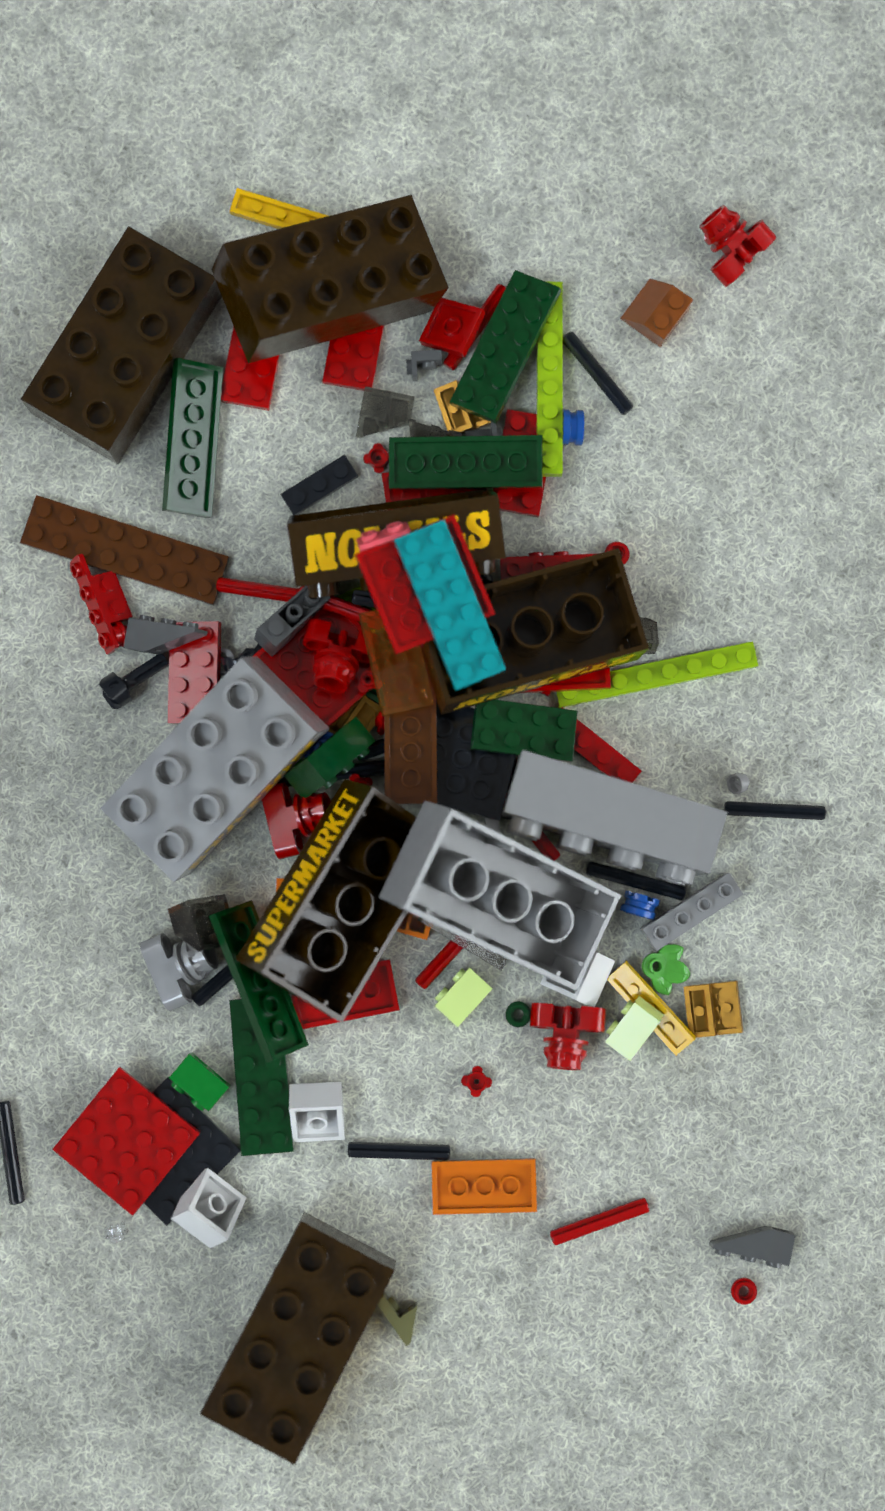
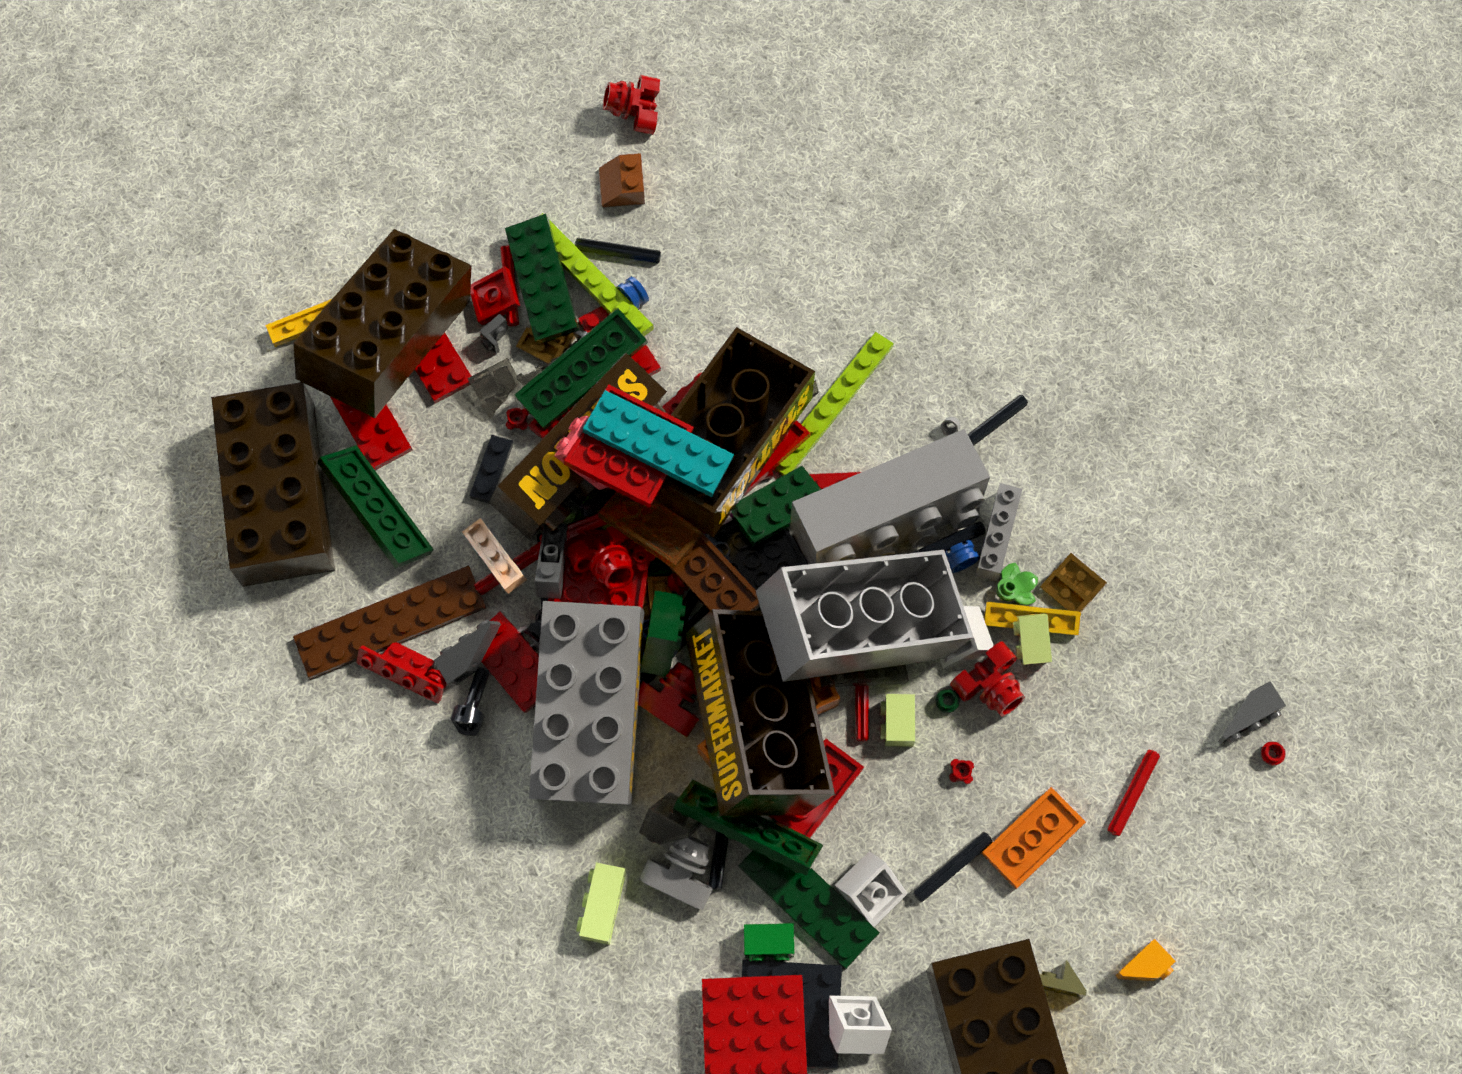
camera: 35 degrees left, 15 degrees down
(95, 936) = (601, 903): none -> yellowish green brick
(252, 569) = (494, 556): none -> light nougat plate
(480, 1364) = (1148, 964): none -> light orange slope

